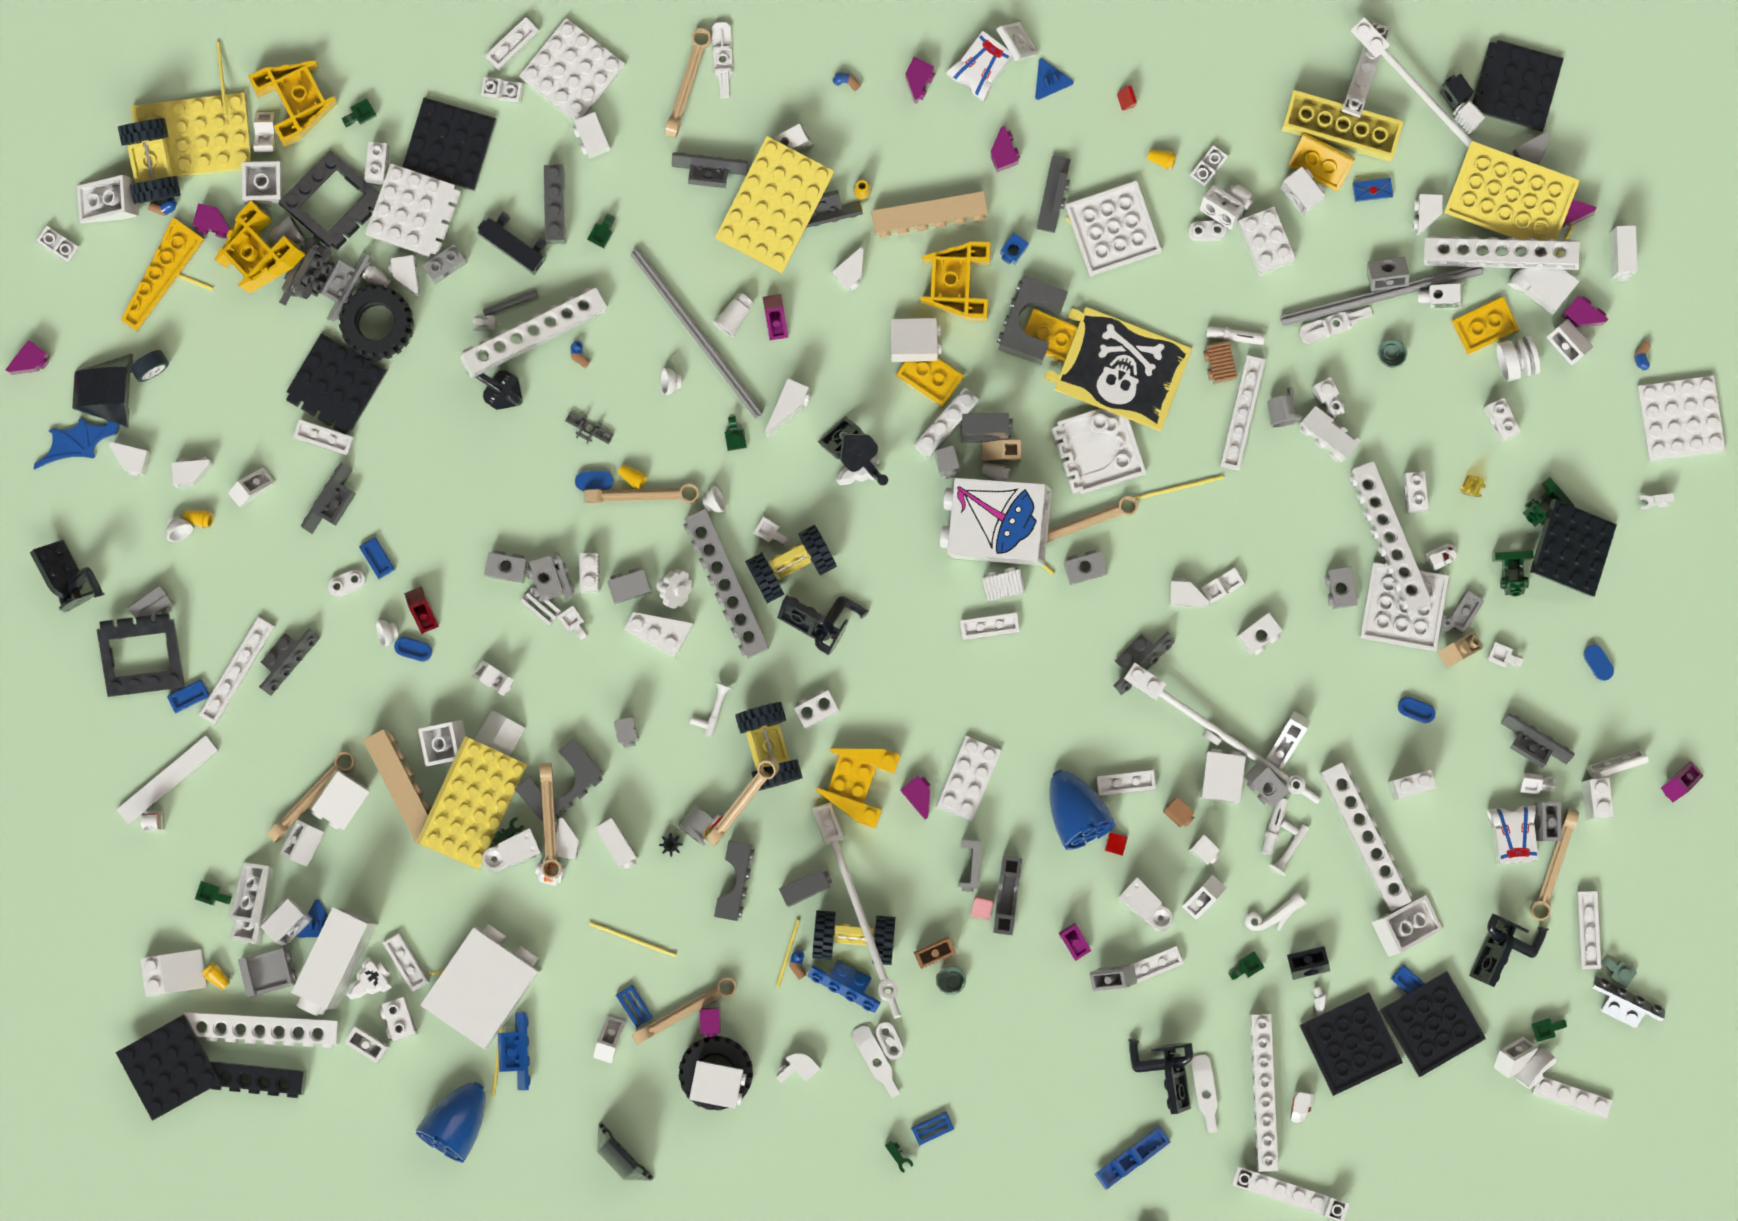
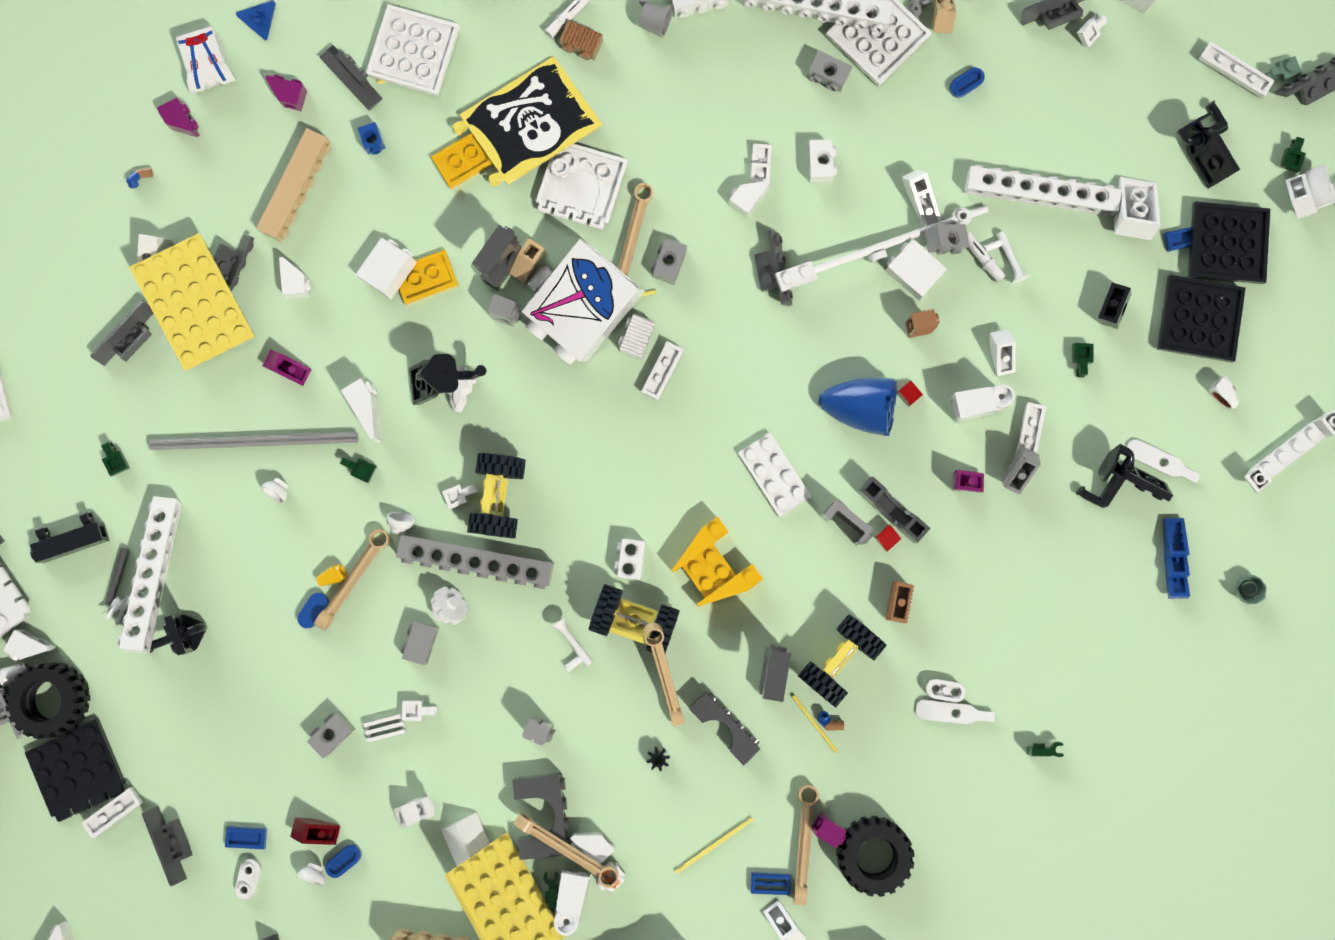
camera: 55 degrees left, 0 degrees up
(251, 487) = (108, 904): white slope -> none
(441, 742) = (435, 894): white brick -> none
(444, 264) = (43, 608): light grey brick -> none
(544, 567) = (374, 709): light grey brick -> none
(554, 204) = (53, 478): dark grey arch -> none
(561, 569) = (366, 690): light grey hinge -> none
(577, 354) = (200, 551): arm -> none
(589, 573) = (385, 668): white brick -> none
(591, 135) = (28, 412): white brick -> none
(593, 433) = (273, 585): dark grey piece -> none
(617, 844) = (626, 804): white brick -> none
(659, 632) = (475, 644): white wedge -> none
(674, 120) = (67, 337): tan piece -> none
(698, 824) = (658, 723): light grey hat -> none
(717, 1084) = (889, 865): white brick -> none
(722, 47) = (37, 257): white piece -> none
(733, 315) = (260, 400): white plant -> none
(801, 1063) = (913, 778): white brick -> none
(816, 625) = (560, 511): black plate -> none
(832, 834) = (742, 619): white bar -> none
(846, 982) = (873, 691): blue bracket -> none
(862, 193) = (234, 225): yellow cone -> none
(918, 795) = (760, 524): magenta slope -> none
(918, 1135) = (1040, 705): blue tile -> none
(946, 423) = (472, 290): white brick -> none
(951, 980) = (931, 605): sand green hair -> none
(952, 280) = (360, 203): yellow wedge -> none
(1014, 339) = (445, 186): dark grey arch -> none
(1017, 41) = (206, 18): white tile -> none
(1126, 782) = (866, 350): white plate -> none
(1179, 487) = (657, 143): light yellow piece -> none
(1205, 850) = (965, 325): white slope -> none
(1242, 413) = (633, 51): white plate -> none
(1263, 1092) = (1195, 415): white brick -> none
(1279, 915) = (1058, 302): white plant -> none
(1320, 1001) = (1148, 319): white bar -> none
(1412, 785) = (1028, 123): white brick -> none
(1514, 834) = (1121, 74): white piece -> none
(1548, 821) = (1129, 39): light grey brick -> none
(1568, 824) = (1139, 25): tan piece -> none

